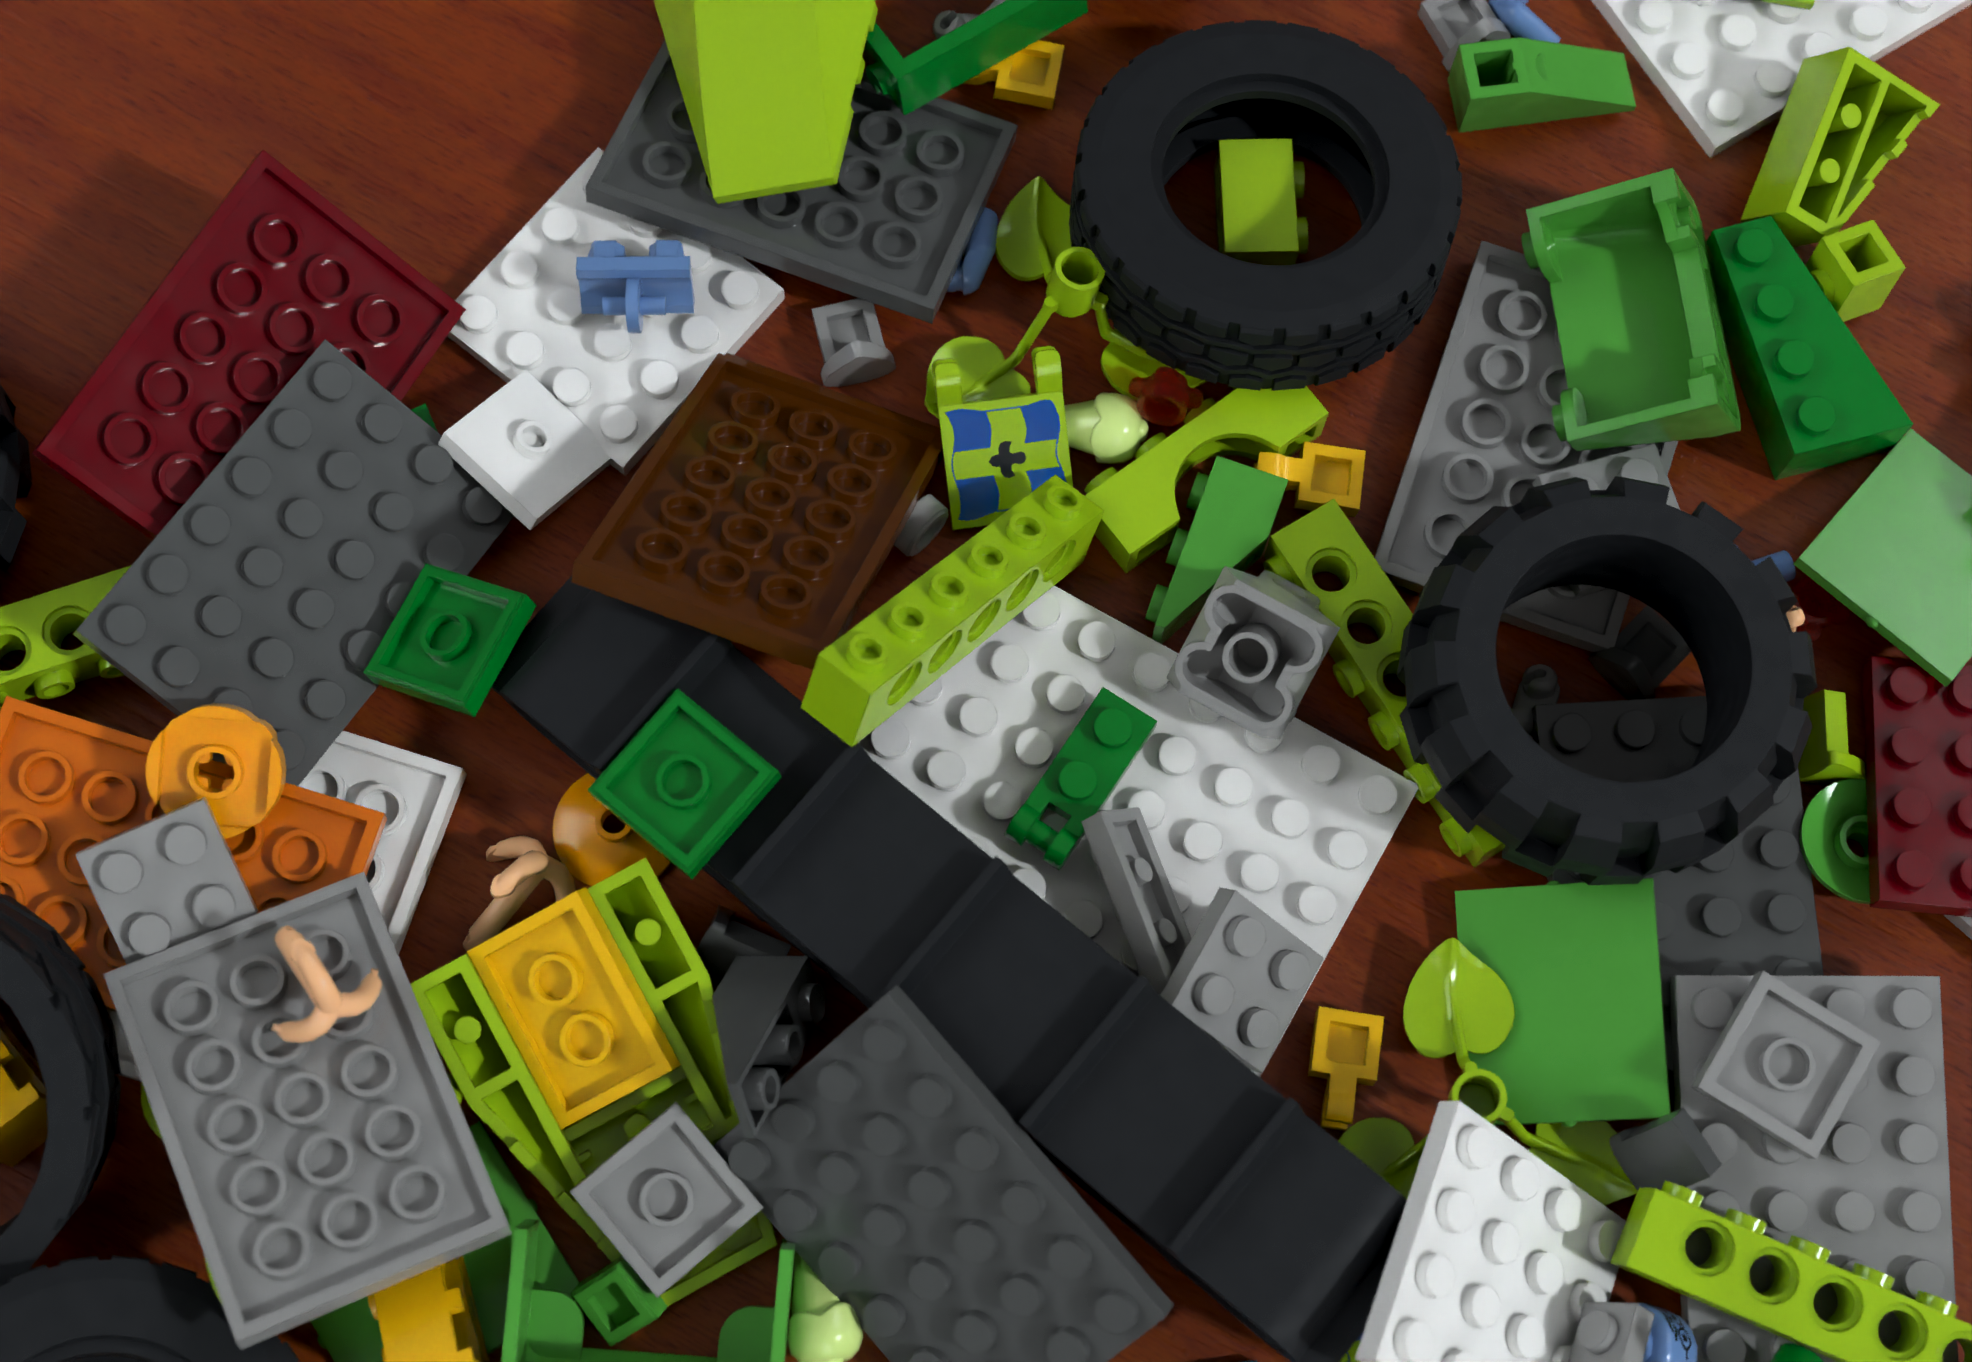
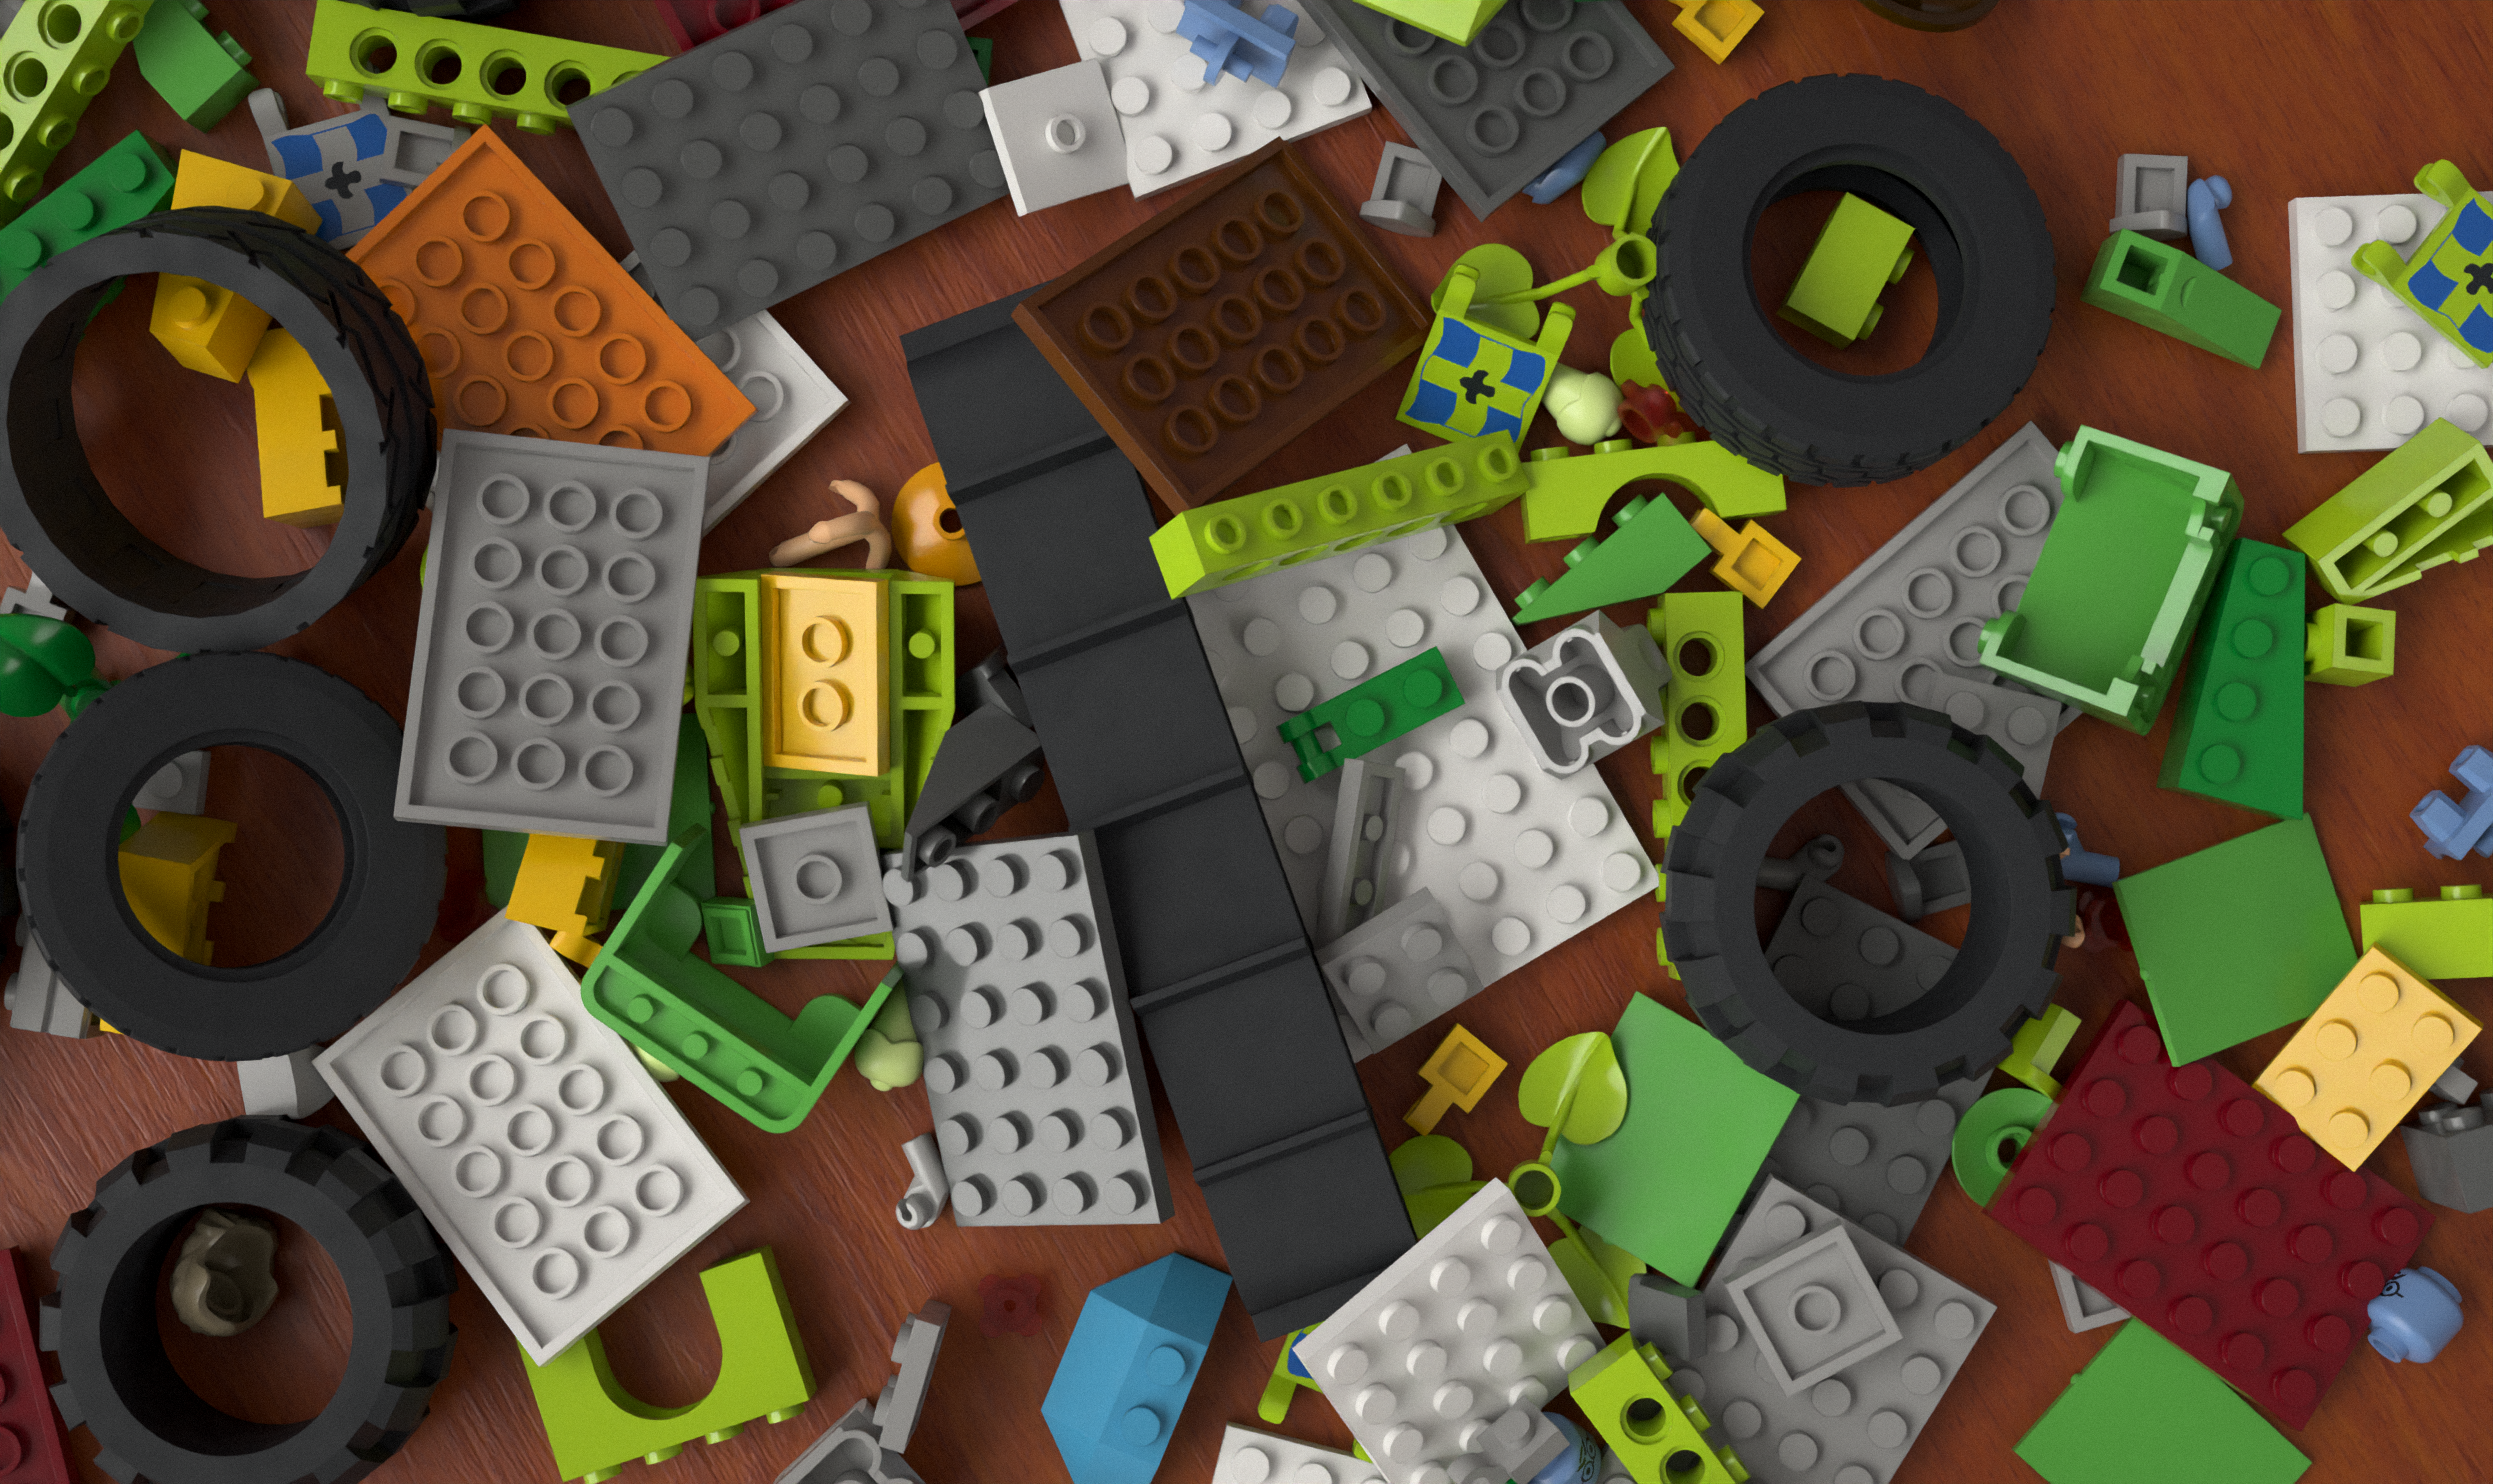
camera: 30 degrees right, 15 degrees up
(166, 881) = (537, 375): light grey plate -> none
(246, 744) = (593, 307): light orange plate -> none
(321, 989) = (614, 549): light nougat piece -> none
(450, 639) = (891, 287): green plate -> none
(684, 783) = (1013, 547): green plate -> none
(922, 525) = (1371, 402): light grey tile -> none

